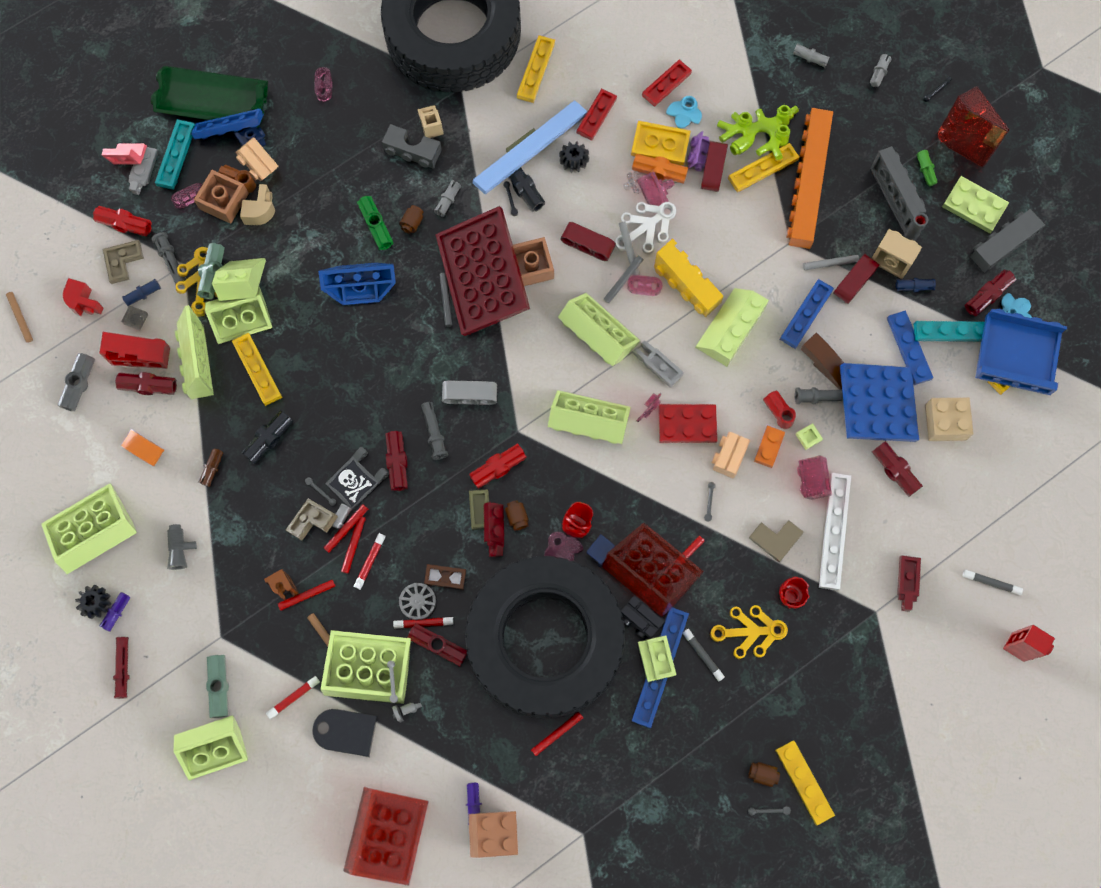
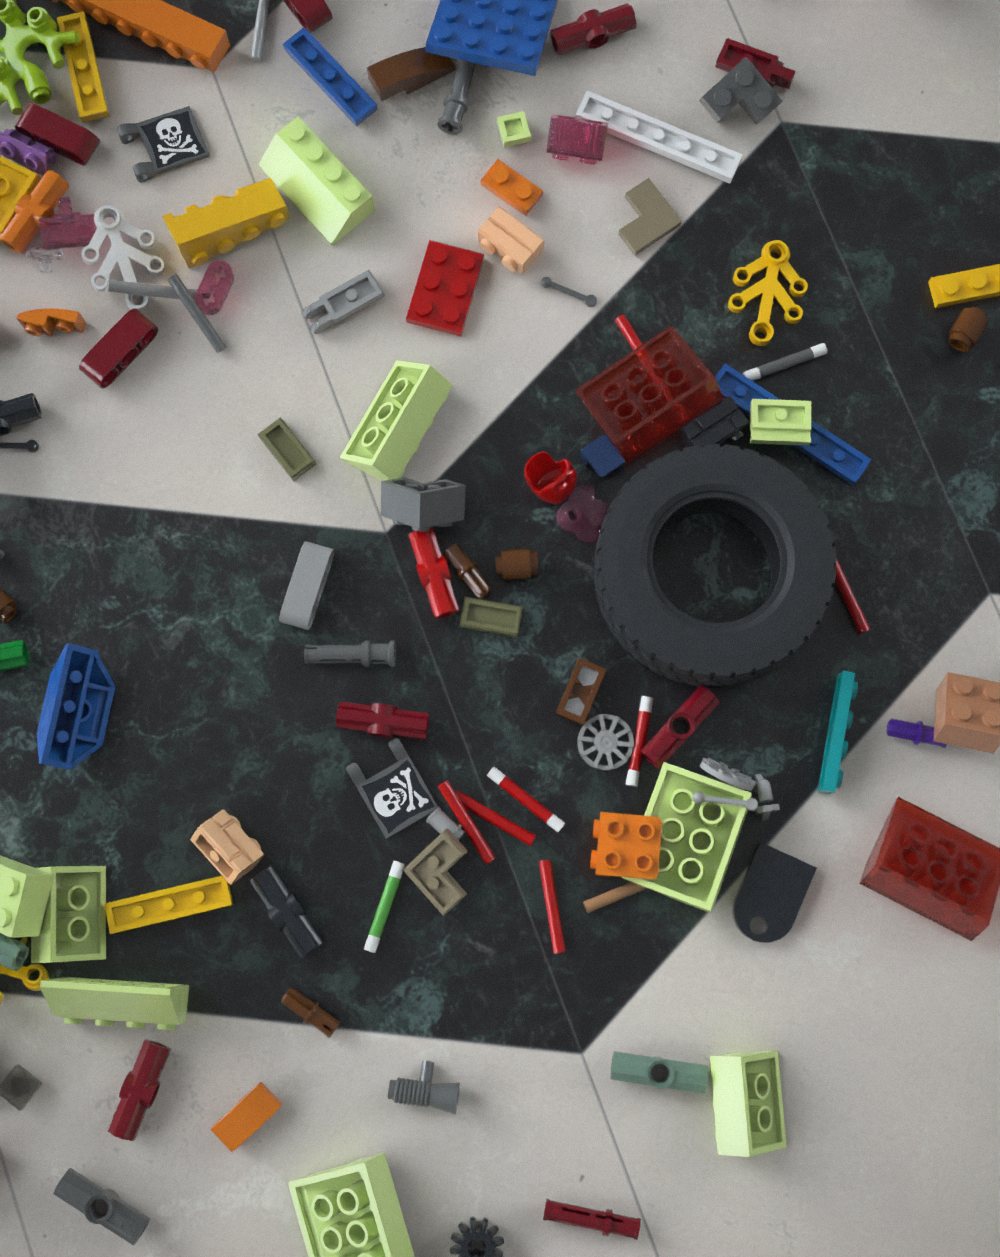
camera: 75 degrees left, 5 degrees up
(115, 611) = (501, 1213): dark purple axle -> none
(134, 351) = (79, 1096): red wedge -> none
(280, 582) = (527, 937): dark orange hinge -> none
(283, 493) = (384, 906): none -> bright green bar
(292, 697) = (701, 961): red bar -> none
(297, 391) = (227, 846): none -> light nougat brick
(309, 481) = (375, 863): dark grey hinge -> none
(351, 628) = (627, 845): none -> orange bracket
(412, 681) = (727, 775): none -> light grey wheel
(445, 300) = (144, 584): dark grey bar -> none
(450, 750) = (835, 744): none -> teal plate
(482, 271) = (119, 513): dark red plate -> none
(494, 528) = (528, 602): dark red hinge -> none
(505, 486) = (467, 570): none -> reddish brown axle
(534, 261) = (127, 437): nougat brick -> none
(536, 446) = (422, 503): none -> dark grey brick
(553, 357) = (287, 449): none -> olive tile
(593, 198) = (45, 320): none -> orange slope
(598, 329) = (264, 371): yellowish green slope -> none
(651, 403) = (406, 327): clear pink plate -> none
(731, 232) = (169, 141): none -> flag
(779, 408) = (460, 155): red piece -> none
(794, 592) = (732, 215): red hair -> none
(886, 576) = (745, 87): none -> dark grey brick

